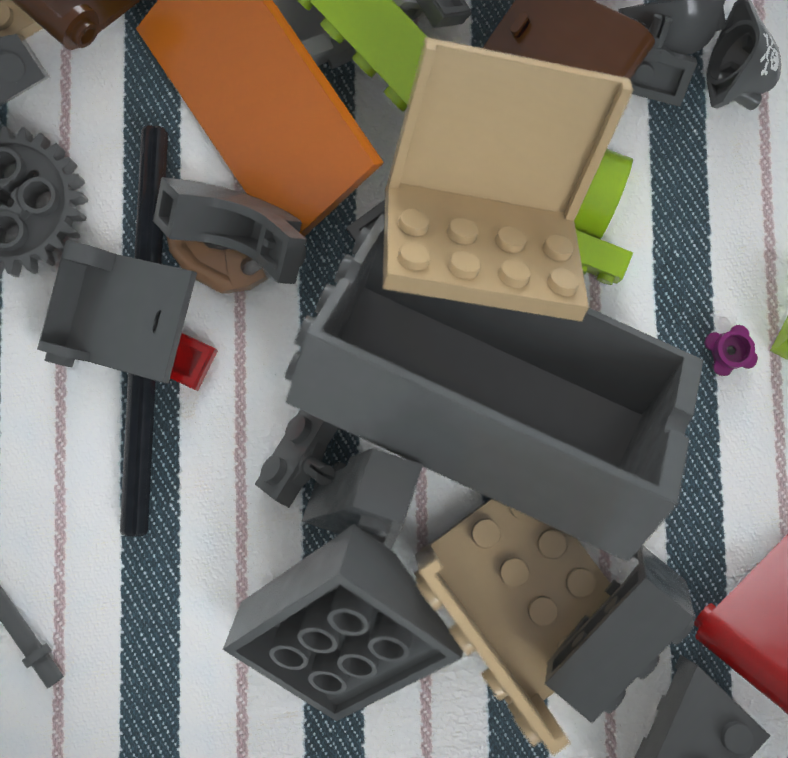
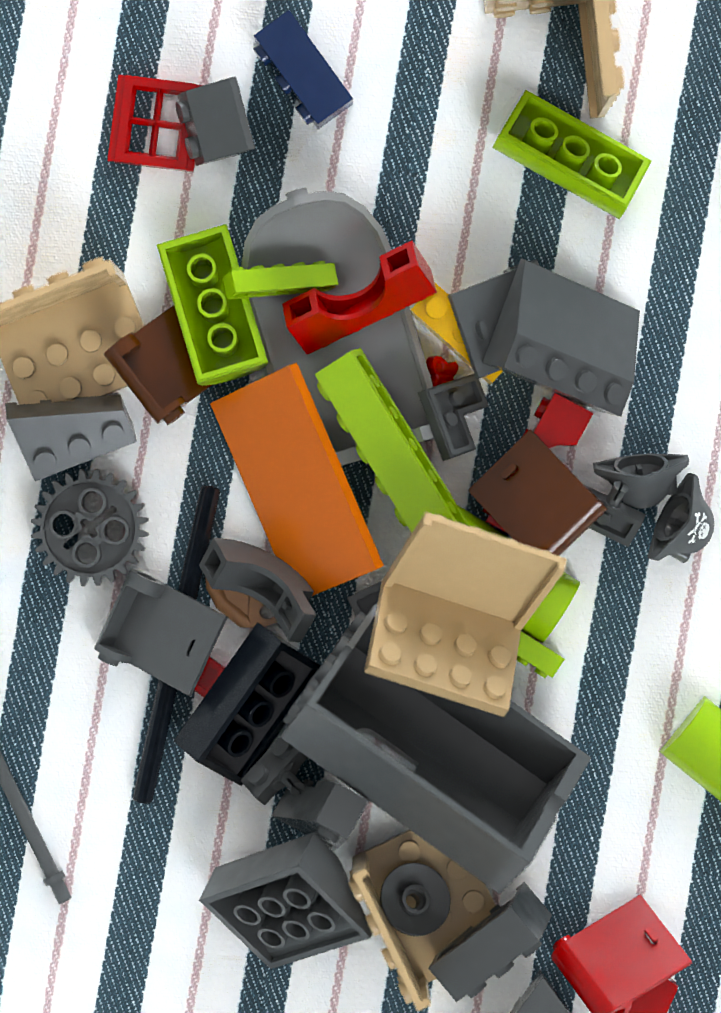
camera: 15 degrees right, 5 degrees up
(238, 391) = (247, 704): none -> black slope
(523, 582) = (430, 895): none -> dark grey dish
(744, 347) = (621, 755): magenta plate -> none

